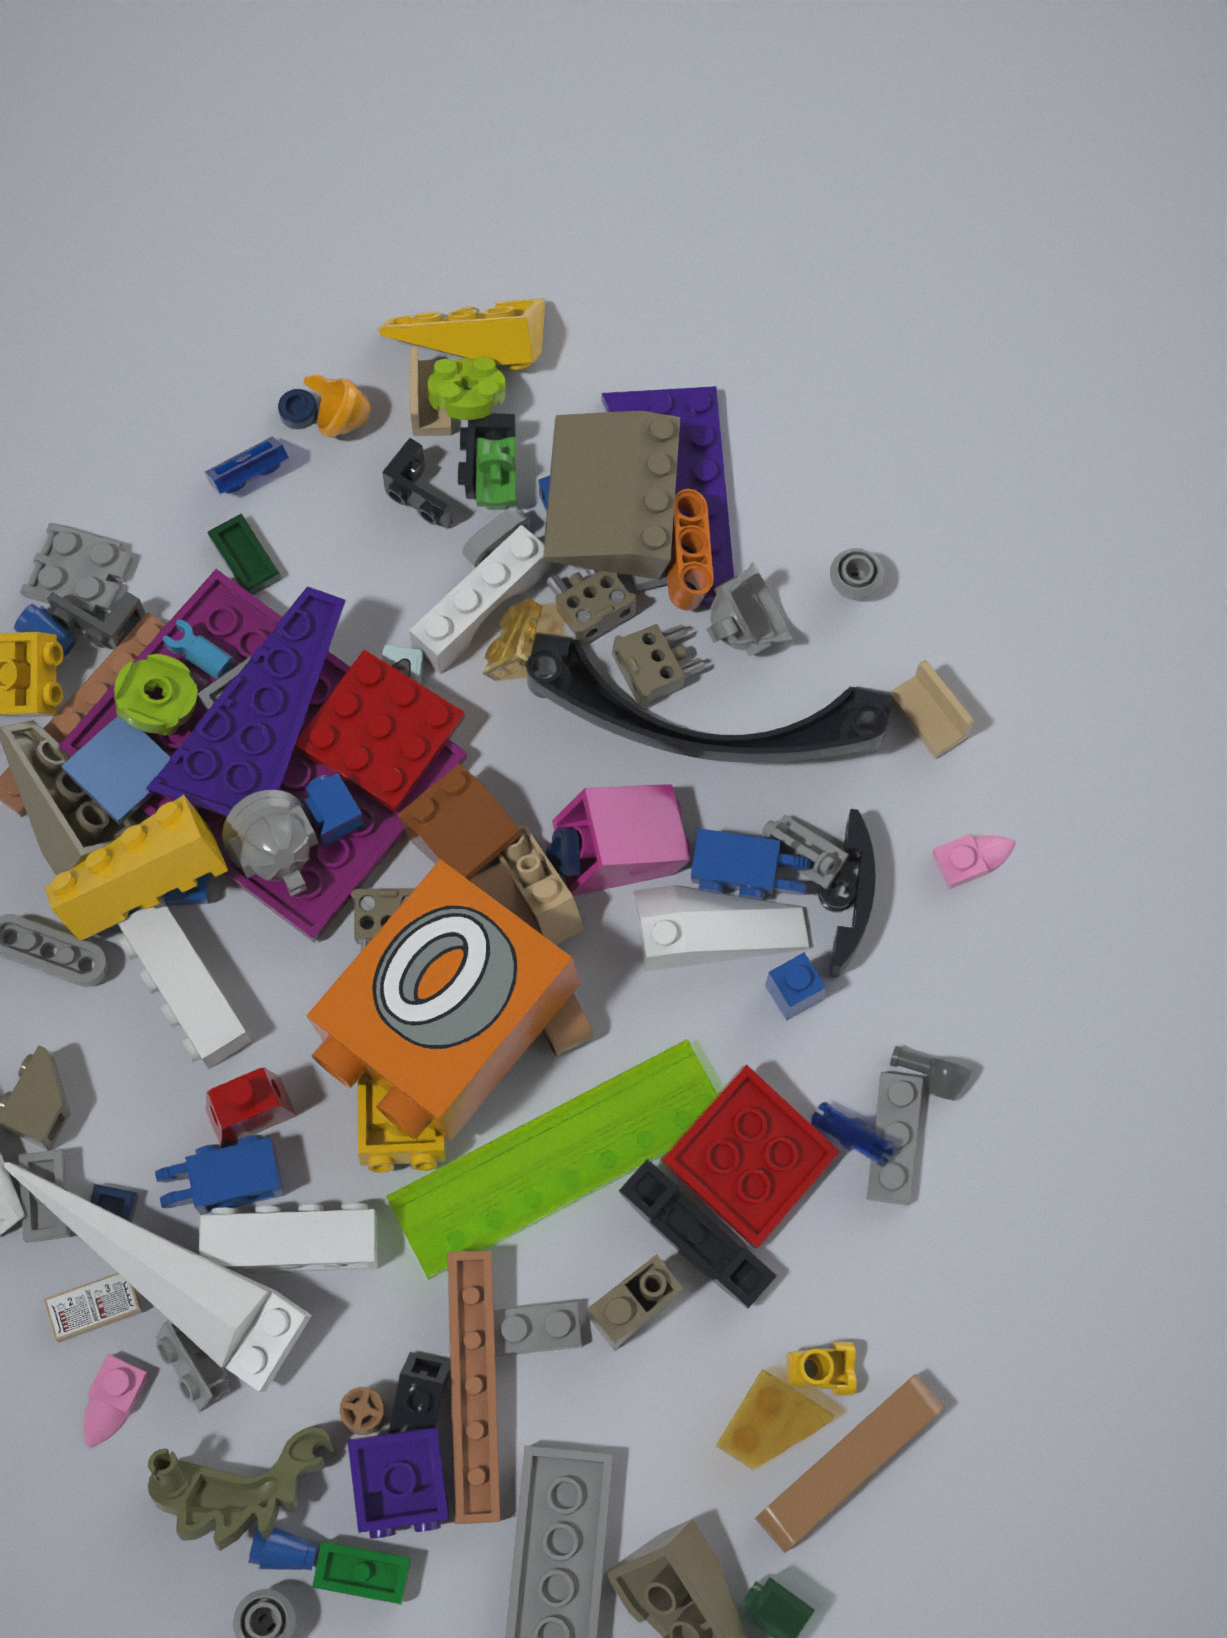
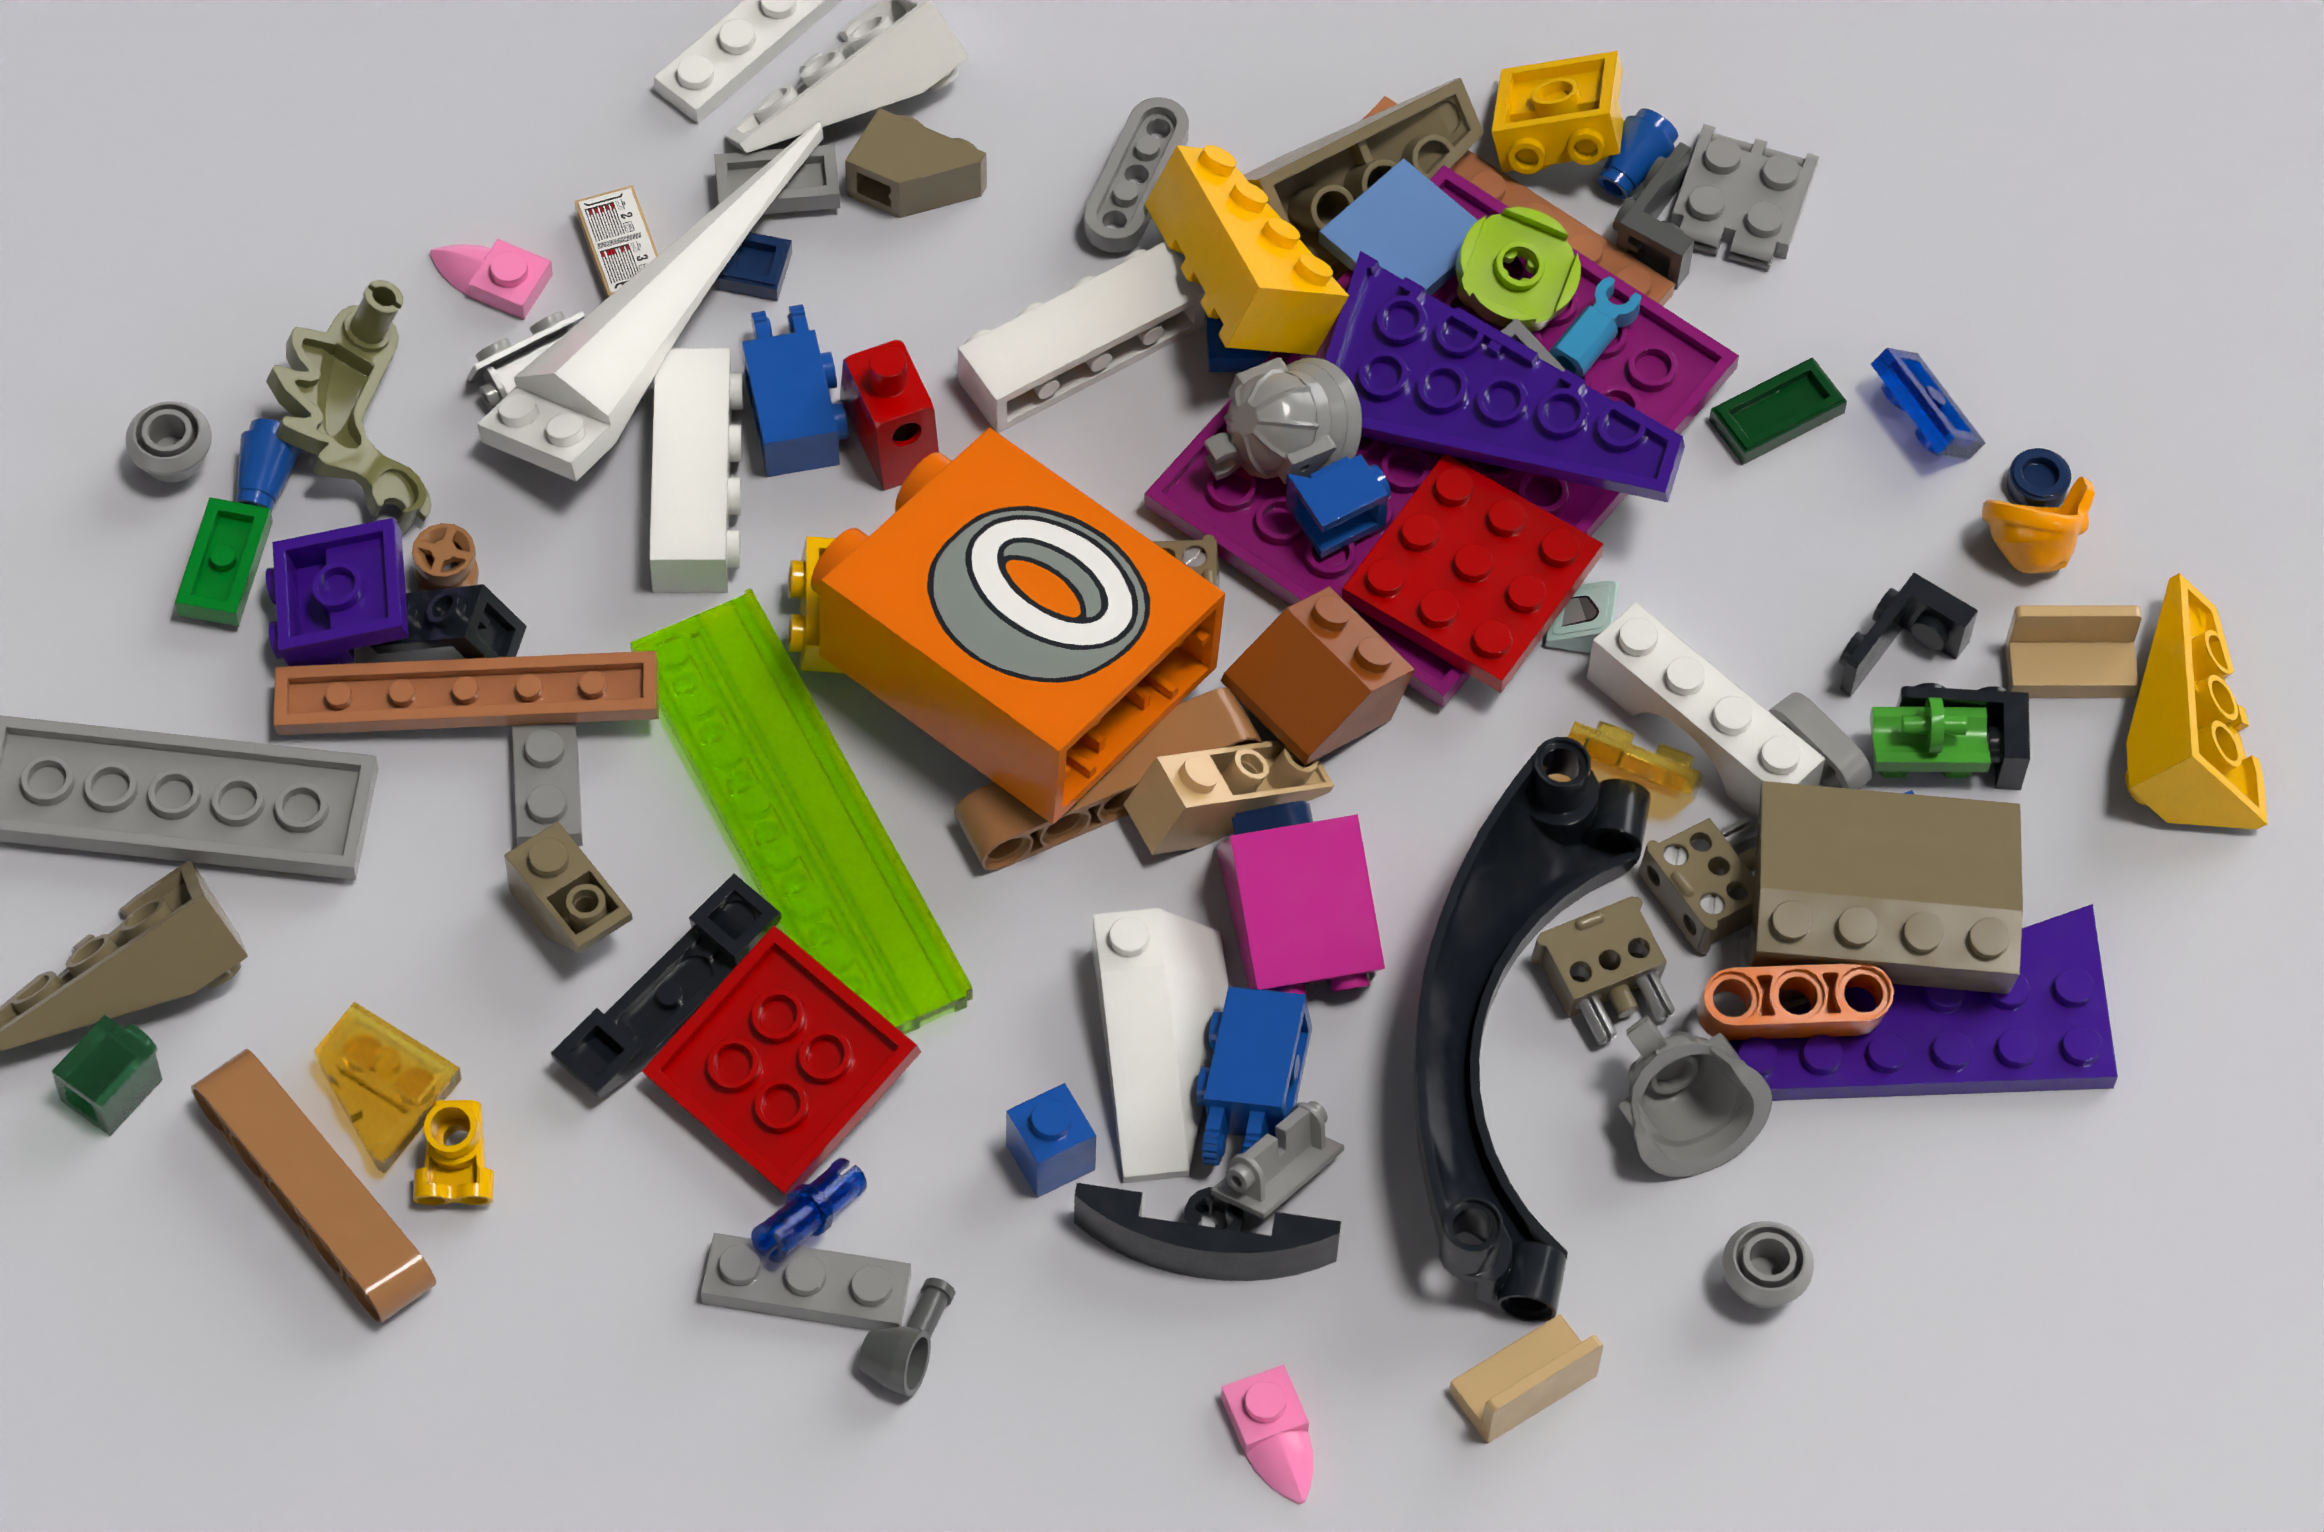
camera: 90 degrees right, 10 degrees down
(479, 374) = (2097, 675): lime plate -> none

